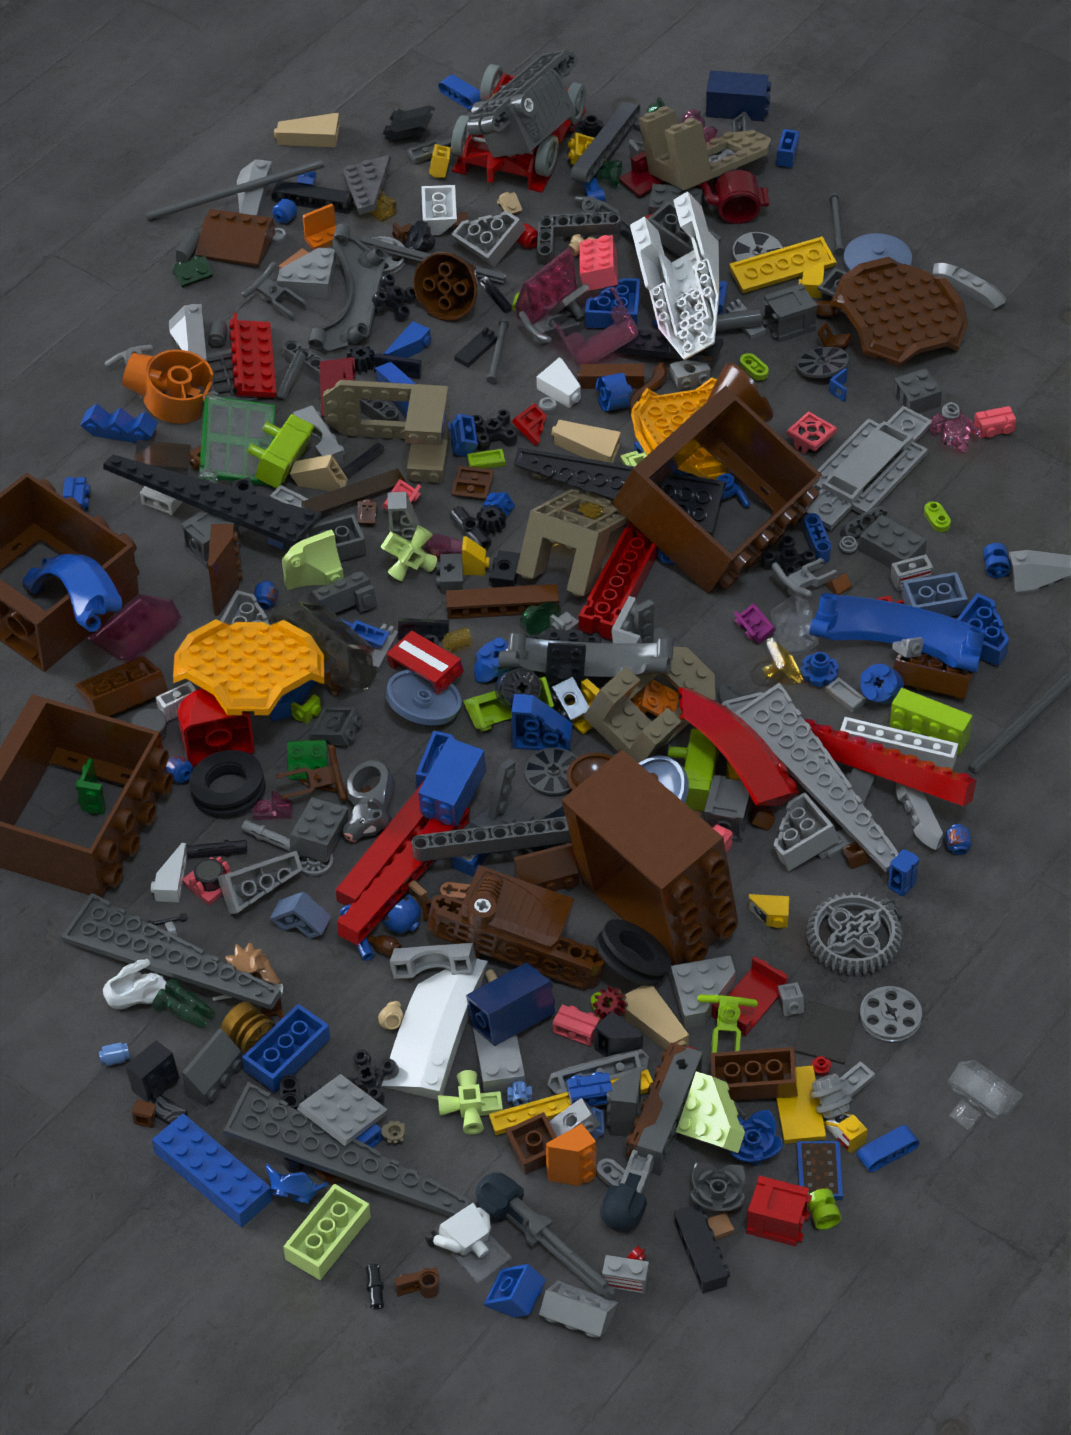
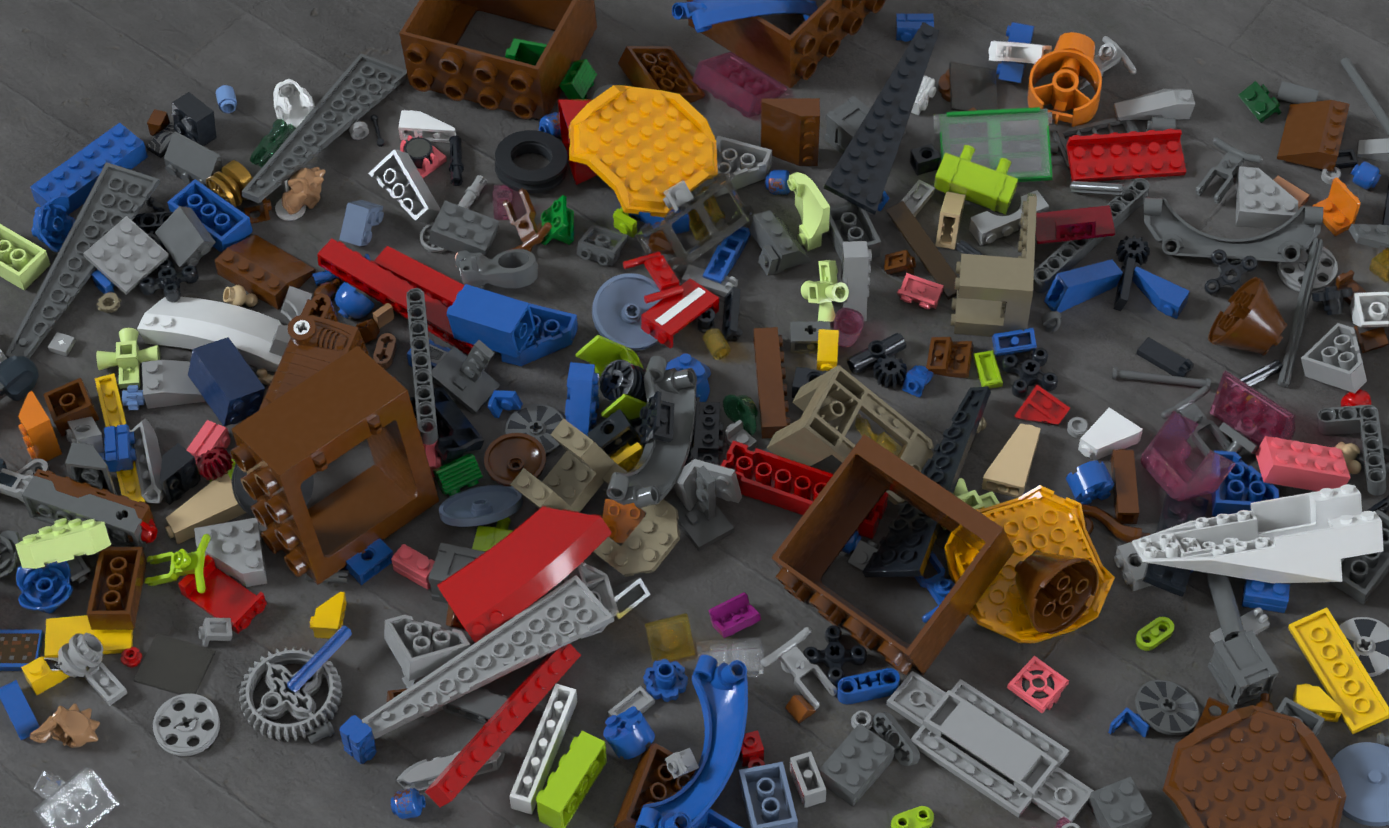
camera: 90 degrees right, 5 degrees up
(131, 409) = (1017, 51): none -> white arch
(315, 636) = (677, 195): none -> light grey bracket
(320, 1060) = (185, 237): none -> dark grey brick
(356, 999) = (262, 269): none -> reddish brown slope
(385, 669) = (661, 274): none -> red plate
(444, 1172) = (61, 344): none -> light grey tile
(525, 788) = (504, 400): none -> blue bracket
(825, 903) = (319, 658): none -> blue axle
(907, 1100) = (68, 726): none -> medium nougat head

